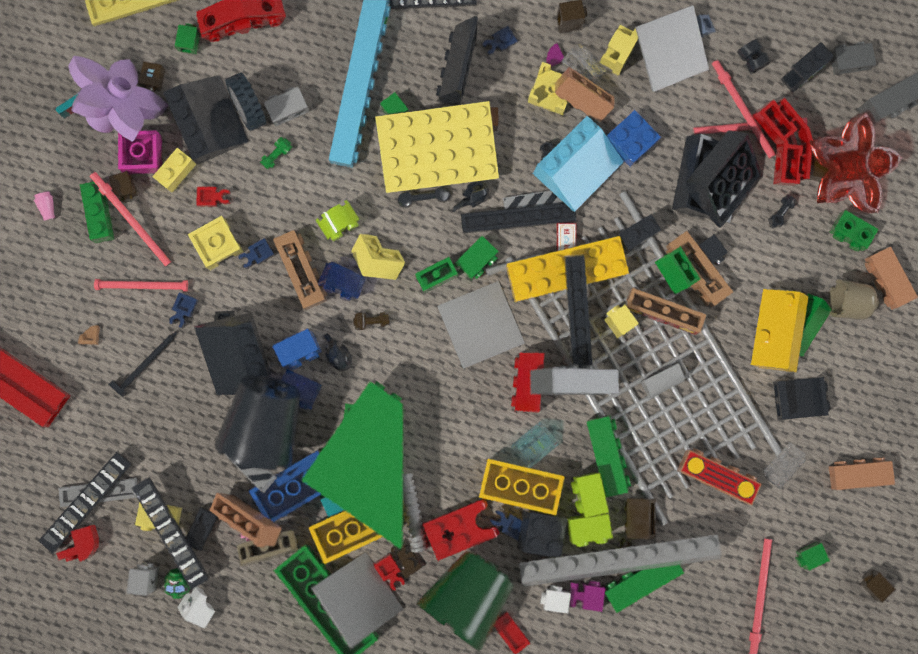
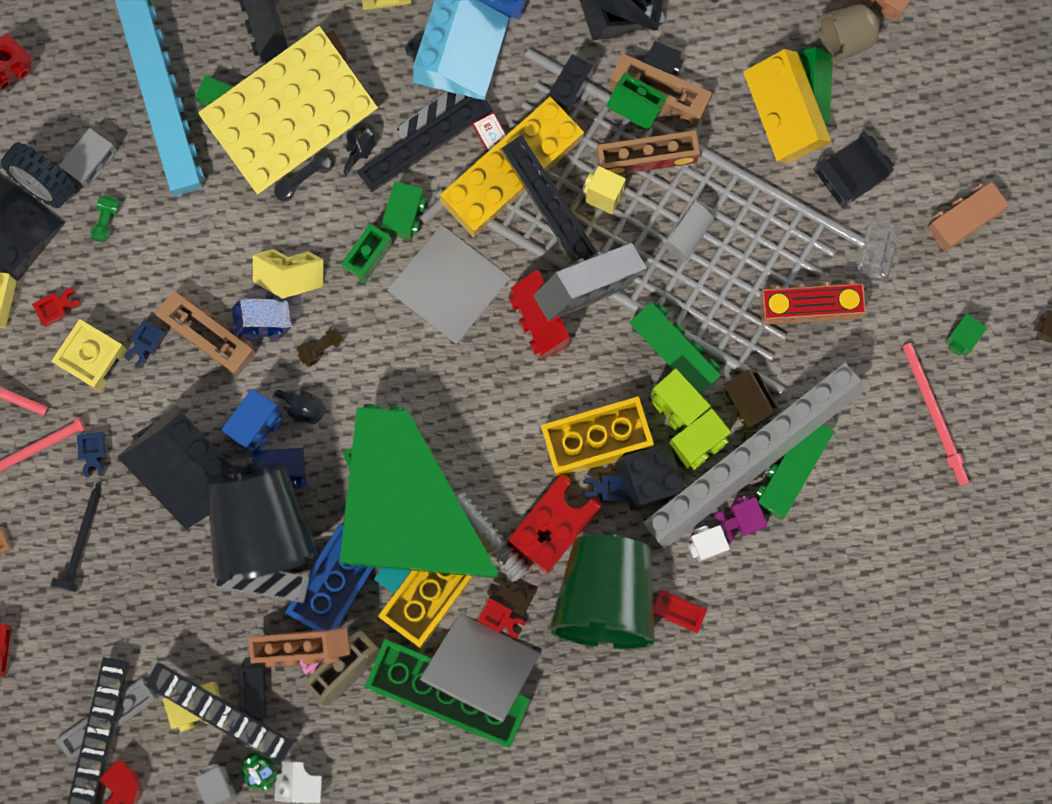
camera: 30 degrees left, 5 degrees down
(338, 220) = (219, 252): lime brick -> none
(534, 445) = (586, 383): clear light blue brick -> none

